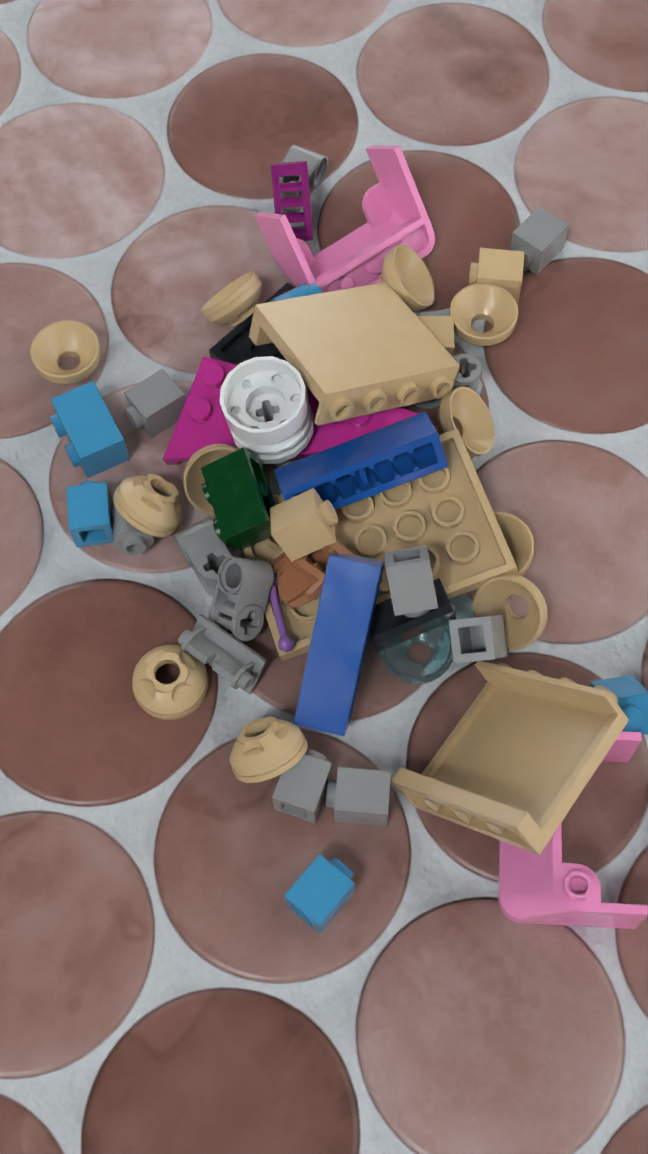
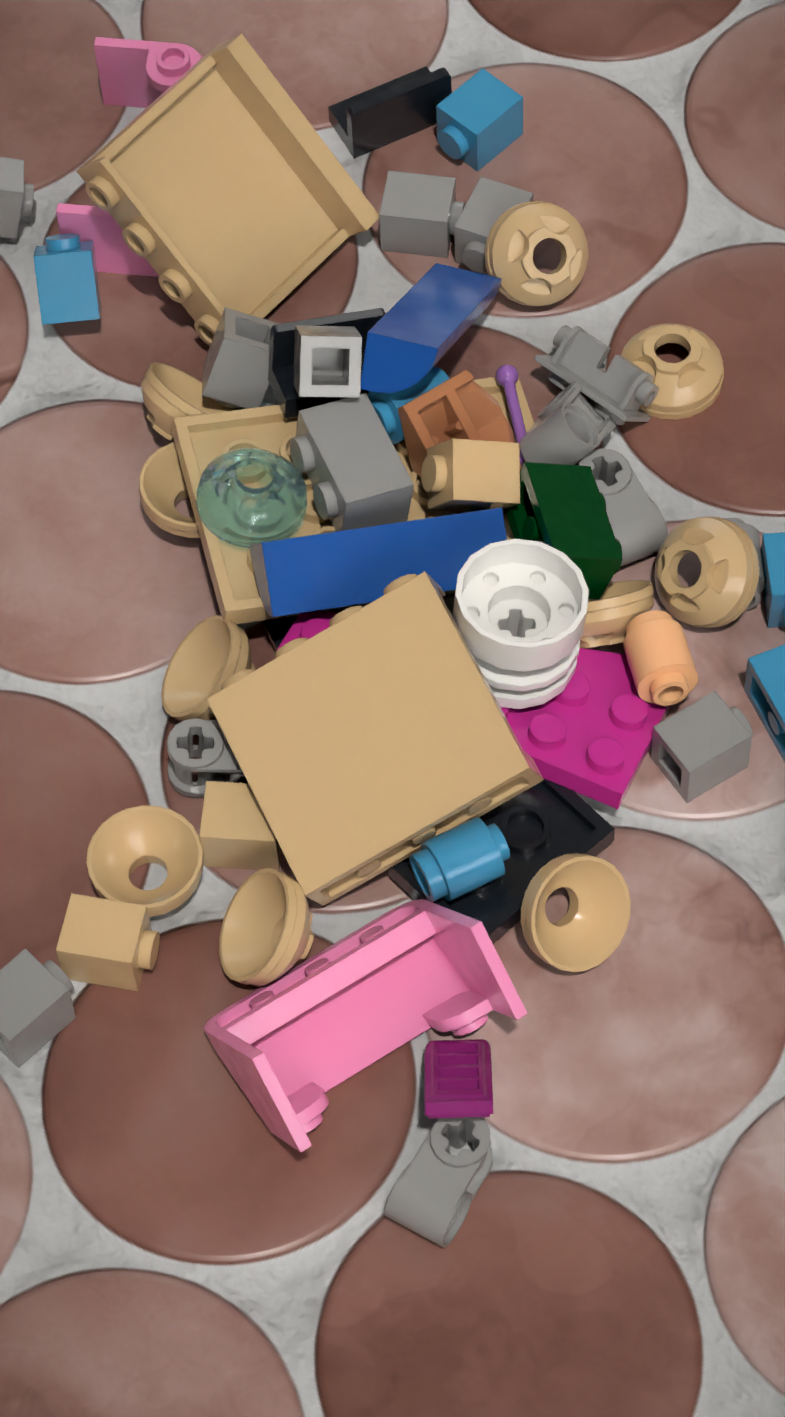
camera: 175 degrees left, 5 degrees down
(178, 434) = (659, 658): none -> light nougat brick
(383, 521) = (351, 465): none -> light grey brick
(394, 910) = (390, 110): none -> black panel
(457, 524) = (251, 514): none -> clear light blue piece

